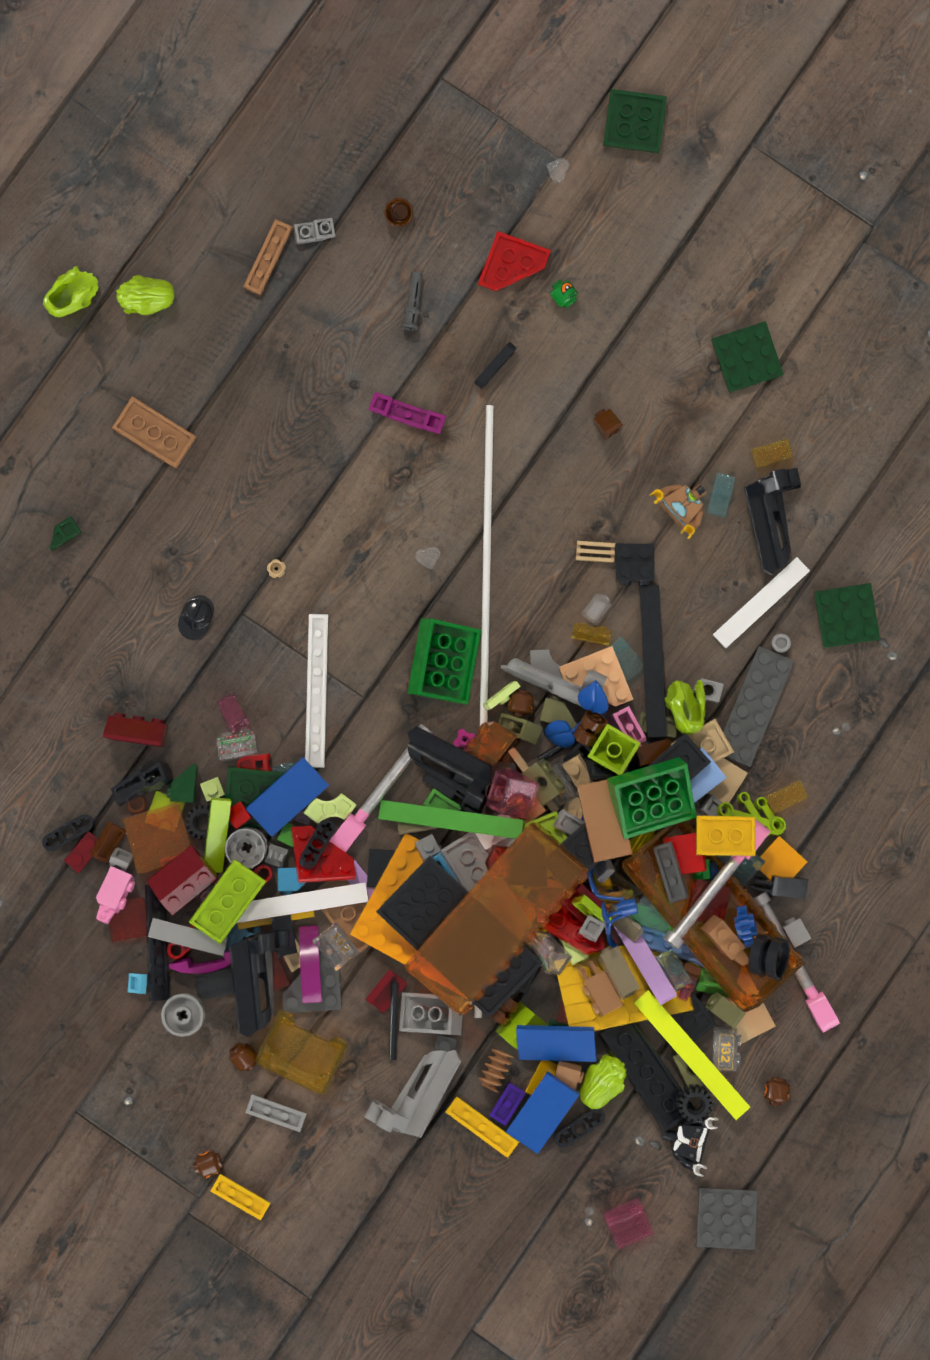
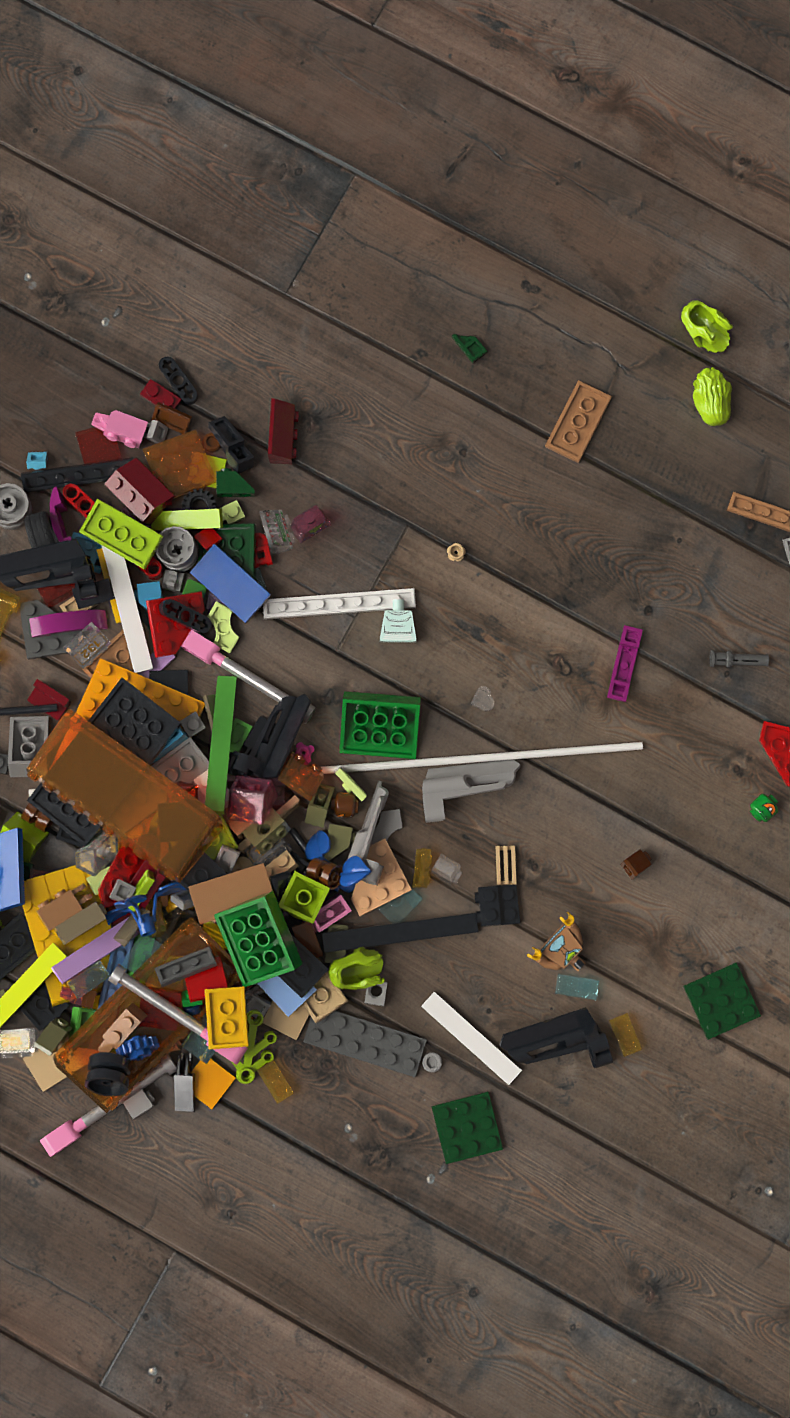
camera: 85 degrees right, 5 degrees down
(185, 936) = (84, 498): light grey tile -> none
(196, 617) = (400, 480): black piece -> none
(345, 633) = (398, 624): none -> light aqua torso
(495, 365) = (683, 746): black beam -> none
(510, 594) = (457, 780): none -> light grey panel

